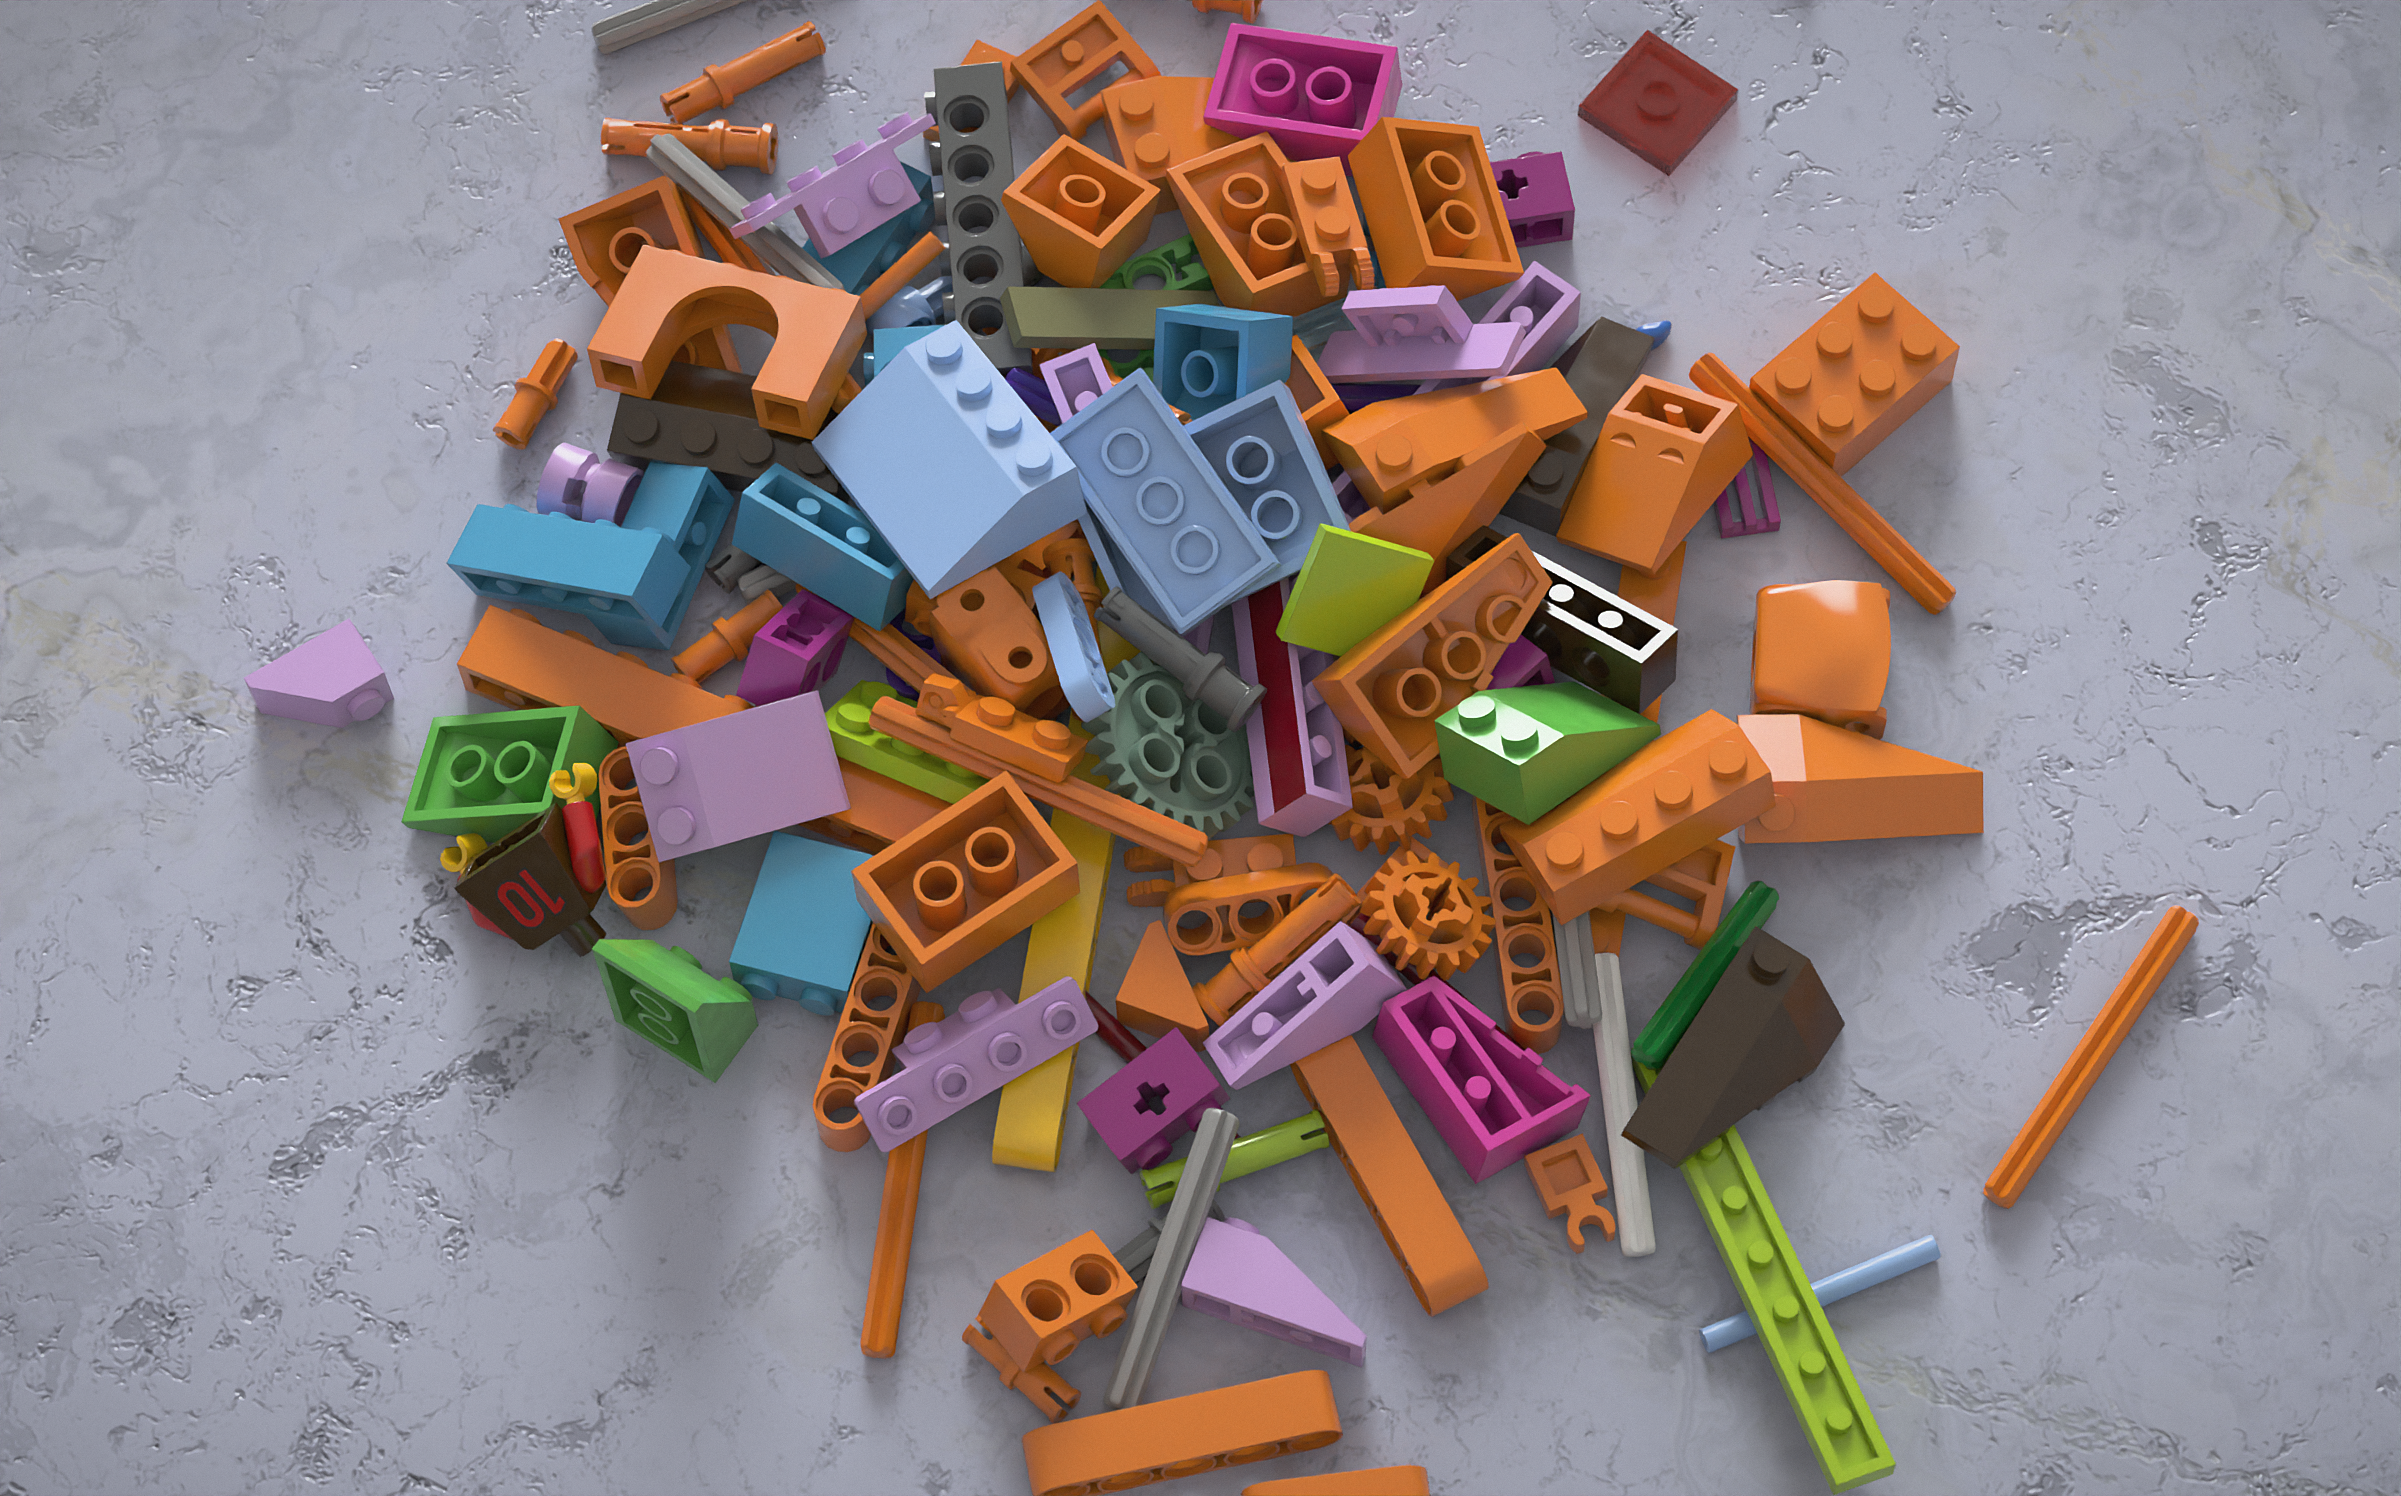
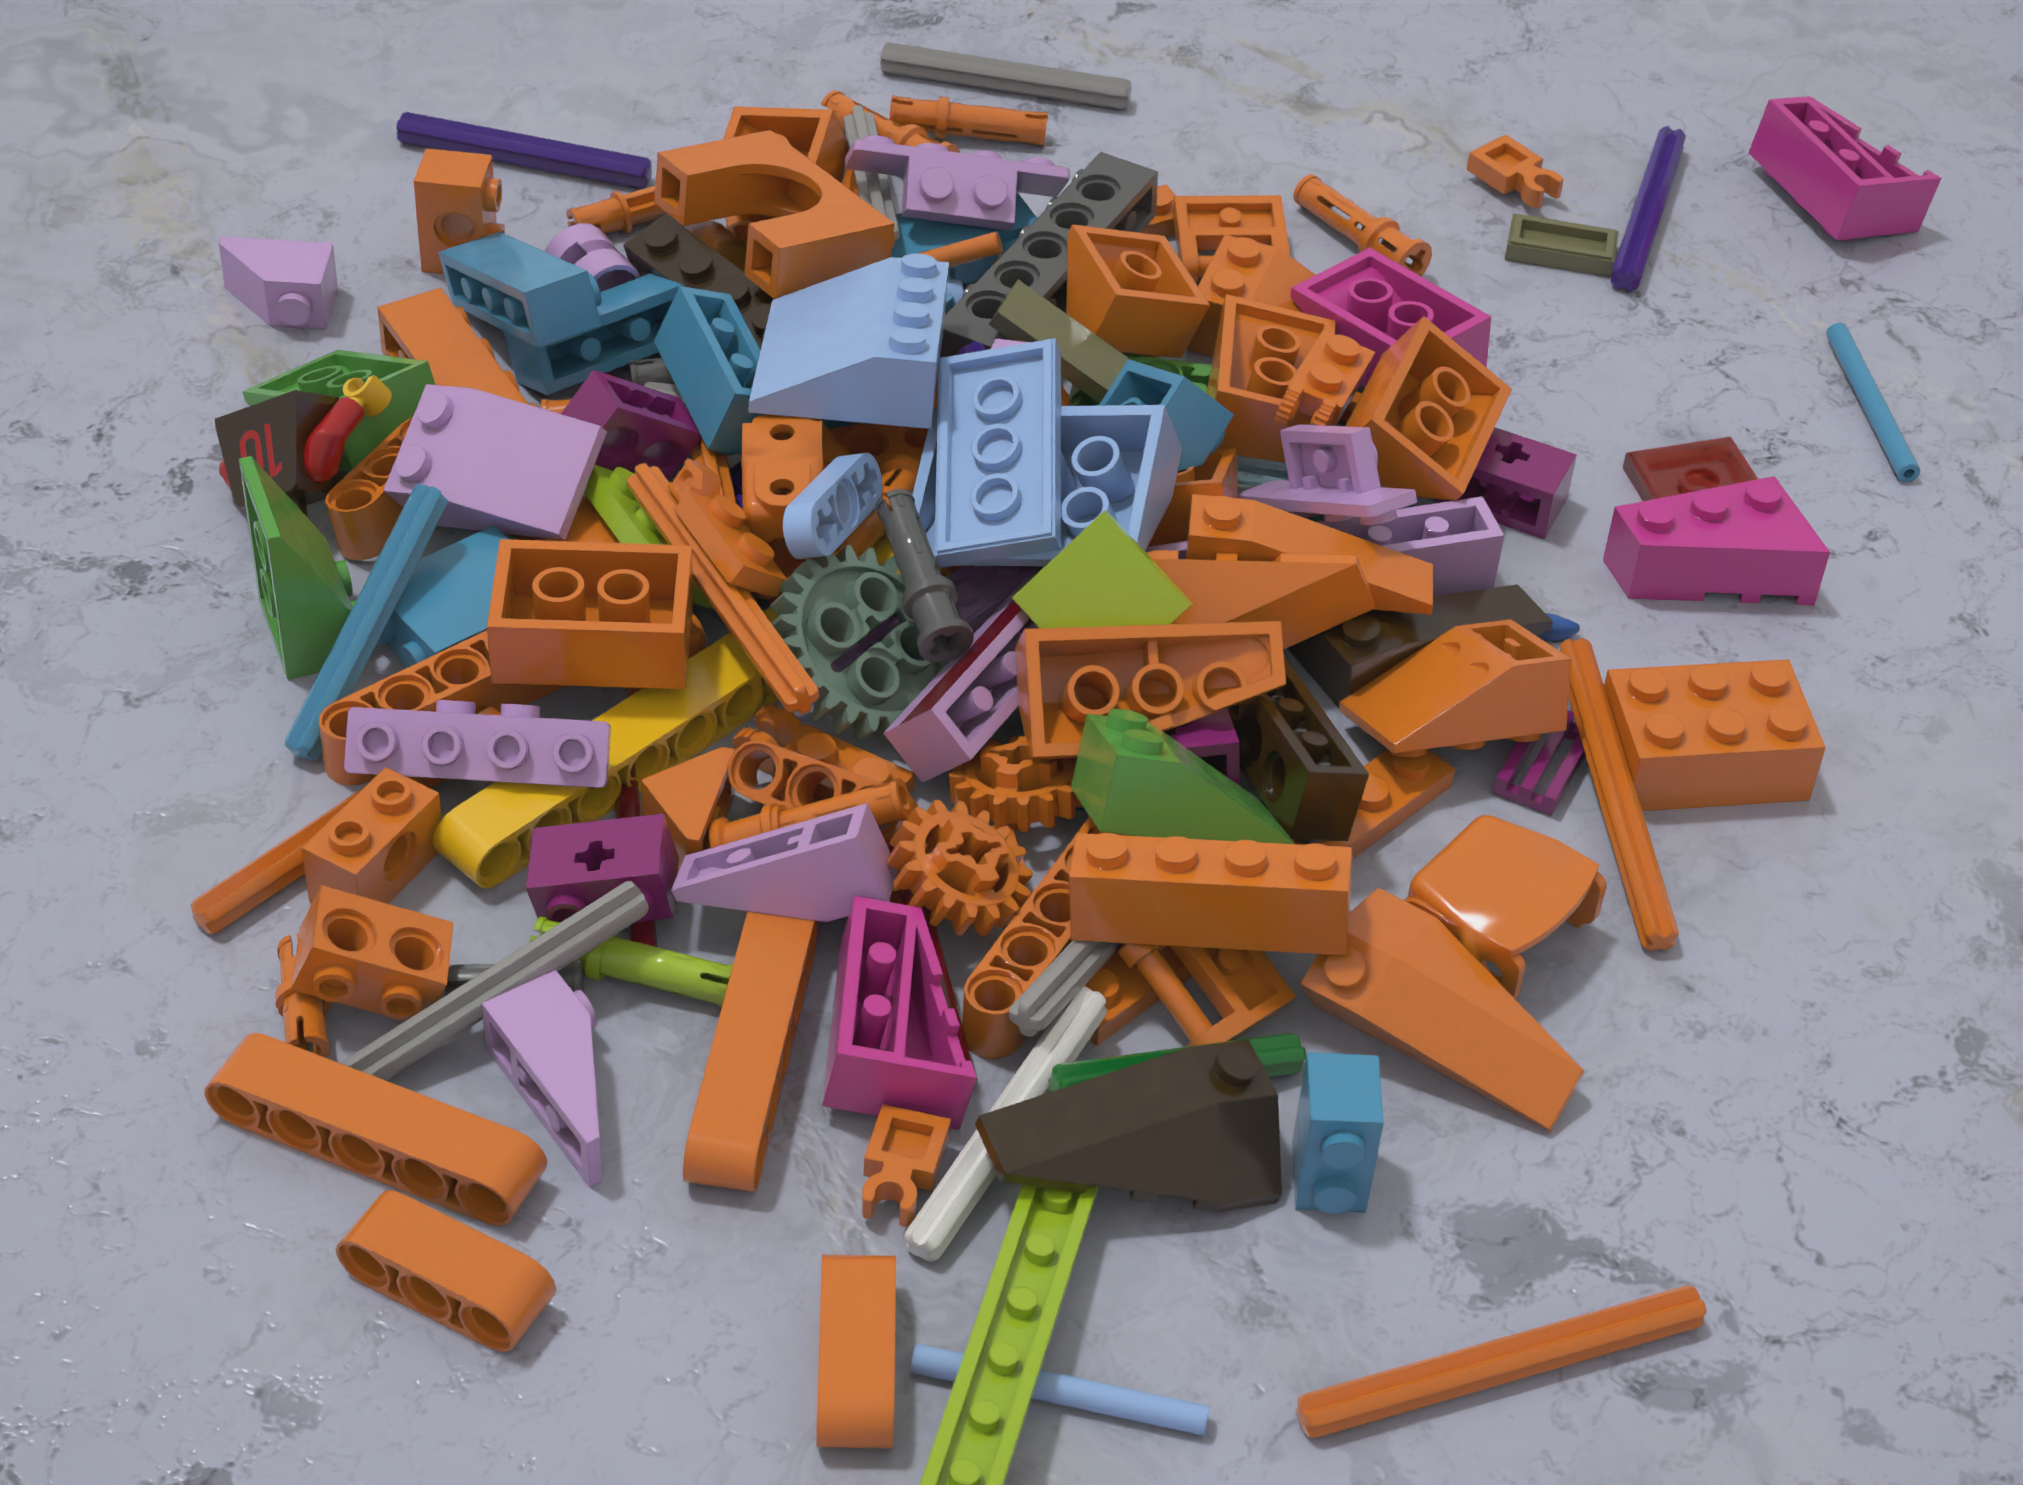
camera: 30 degrees right, 20 degrees down
(379, 375) = (525, 150): none -> dark purple axle
(423, 506) = (454, 202): none -> orange brick
(767, 1000) = (368, 616): none -> dark azure axle
(957, 1200) = (375, 840): none -> orange brick
(1670, 1367) = (856, 1352): none -> orange beam
(1726, 166) = (1716, 541): none -> dark pink wedge
(1867, 958) = (1337, 1132): none -> dark azure brick

